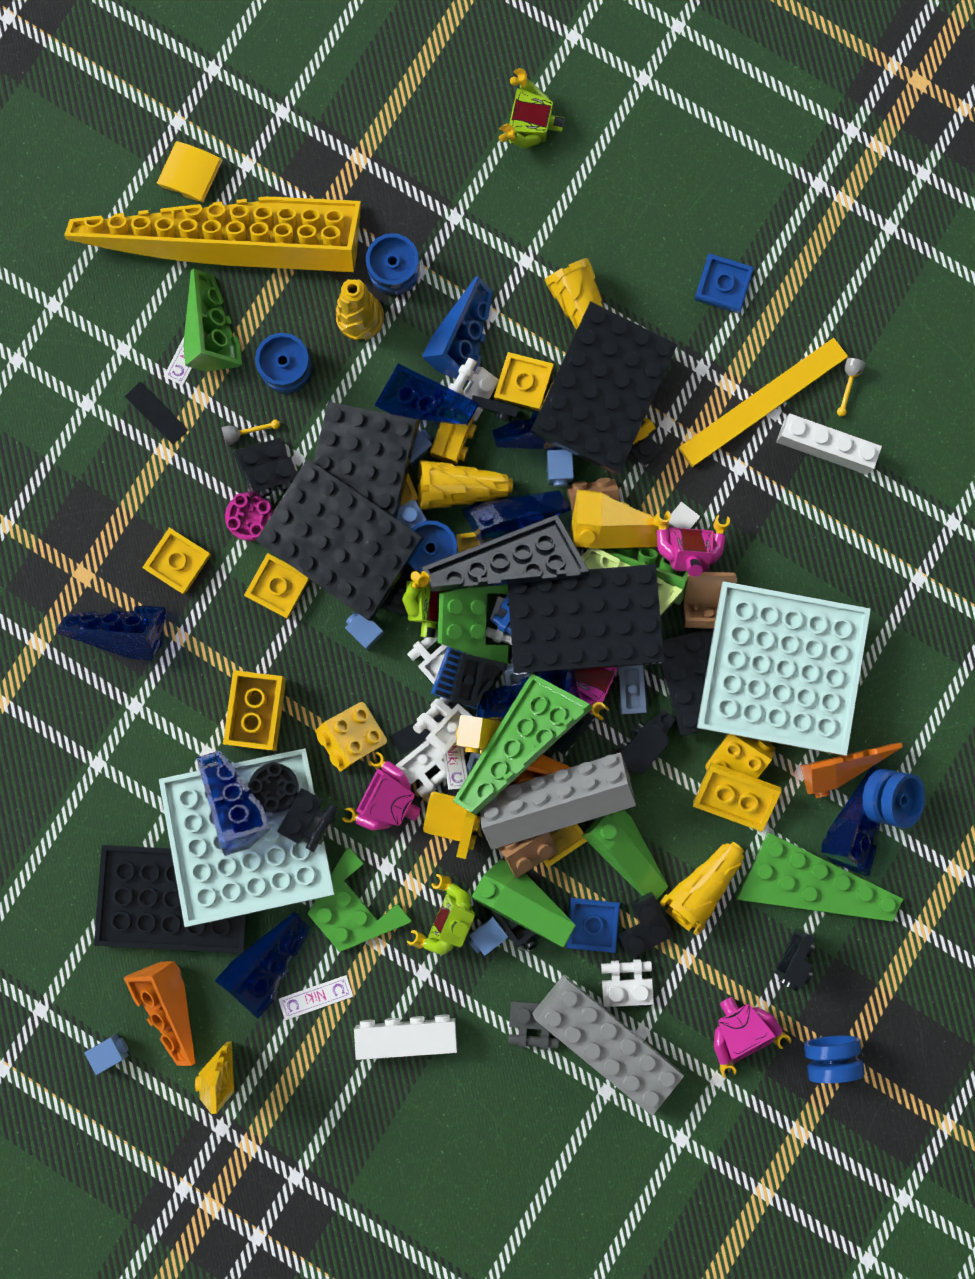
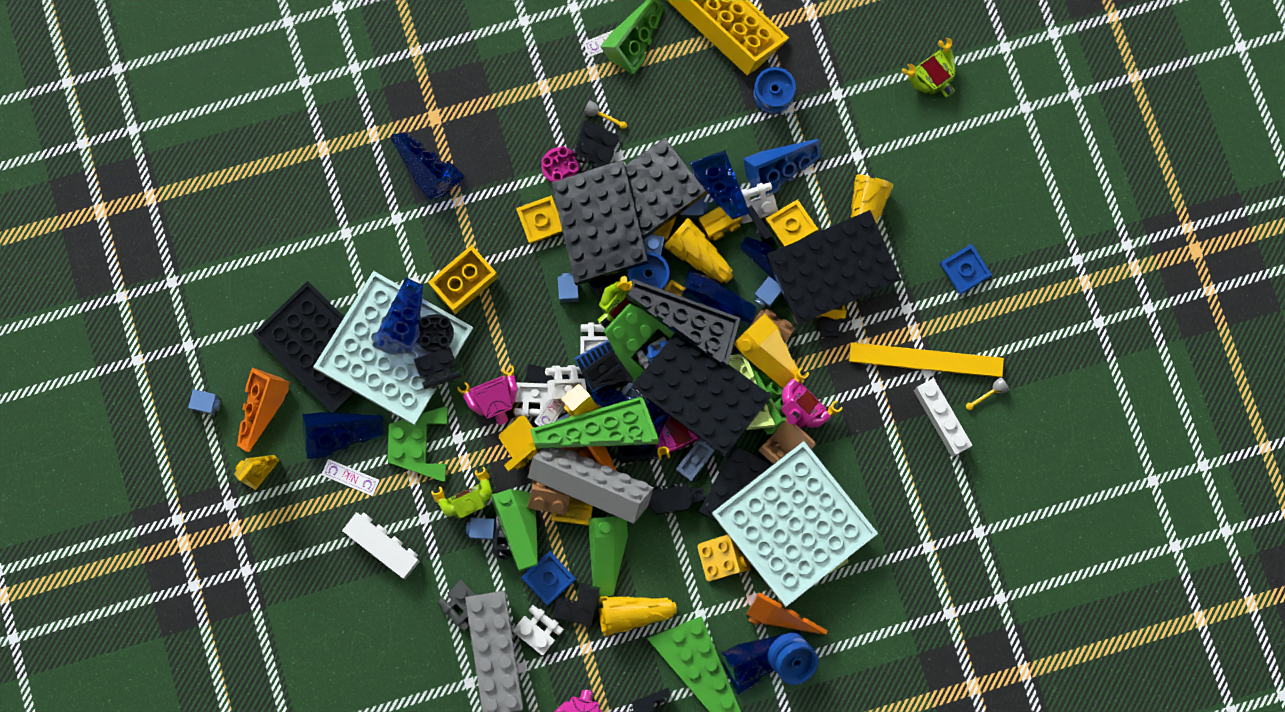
camera: 40 degrees right, 5 degrees down
(156, 412) = (559, 60): black sticker -> none
(176, 561) = (495, 155): yellow plate -> none
(280, 349) = (655, 83): blue wheel -> none
(350, 736) = (505, 343): yellow bracket -> none
(358, 311) = (729, 101): yellow cone -> none
(683, 517) = (816, 386): white tile -> none
(737, 796) = (700, 576): yellow plate -> none

